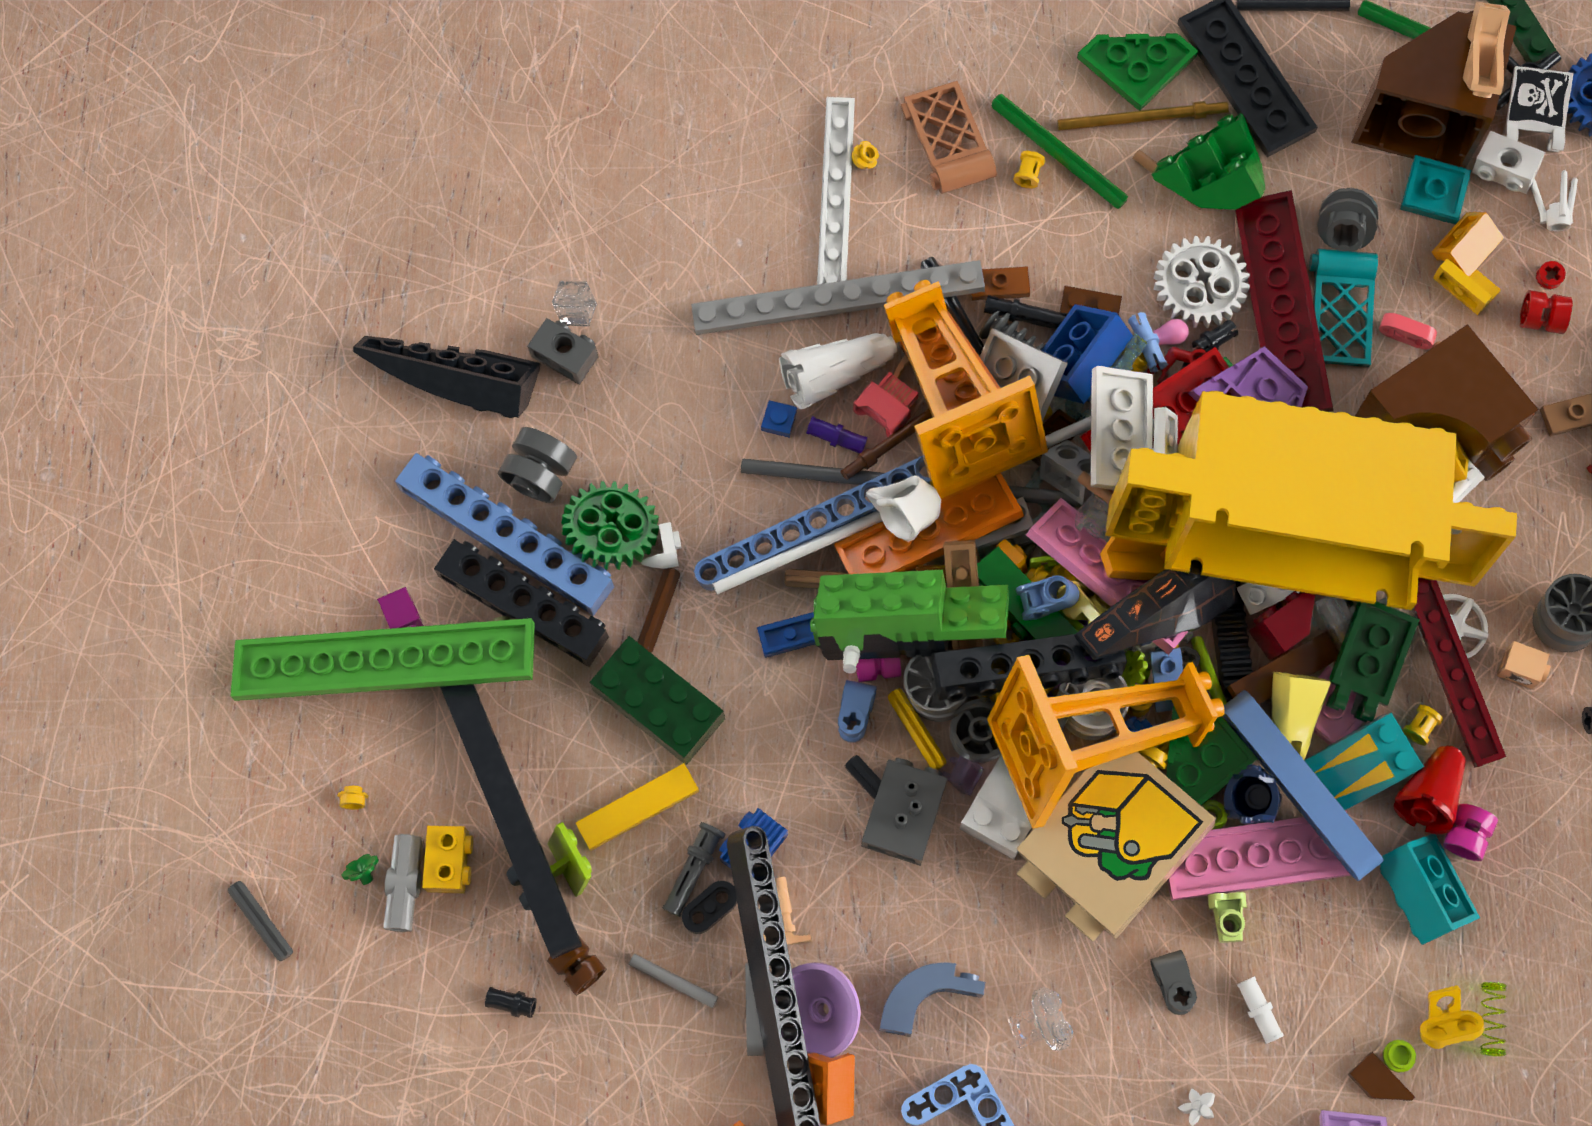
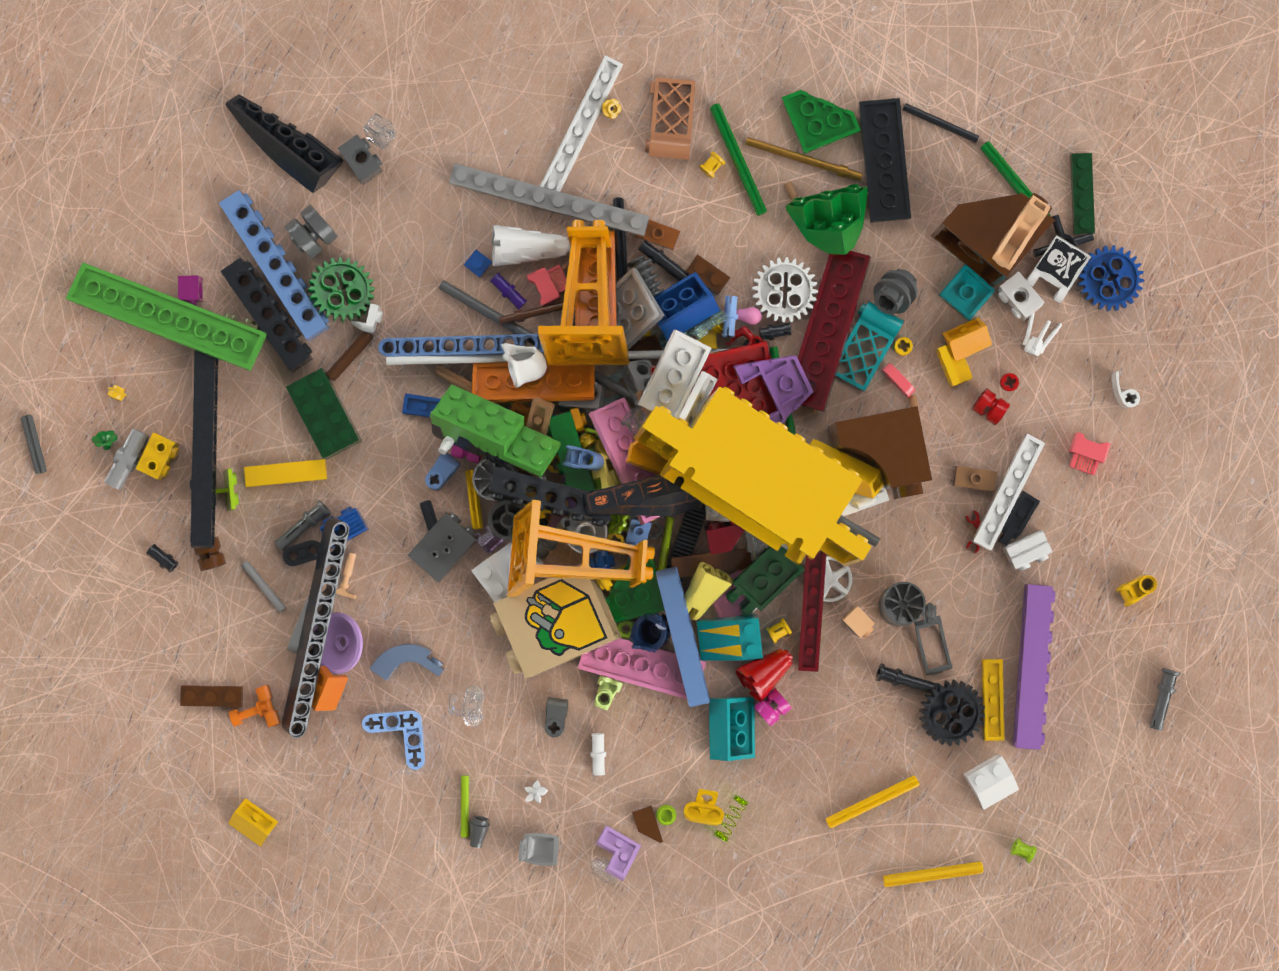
camera: 20 degrees right, 15 degrees up
(1389, 280) = (906, 341): none -> yellow bush

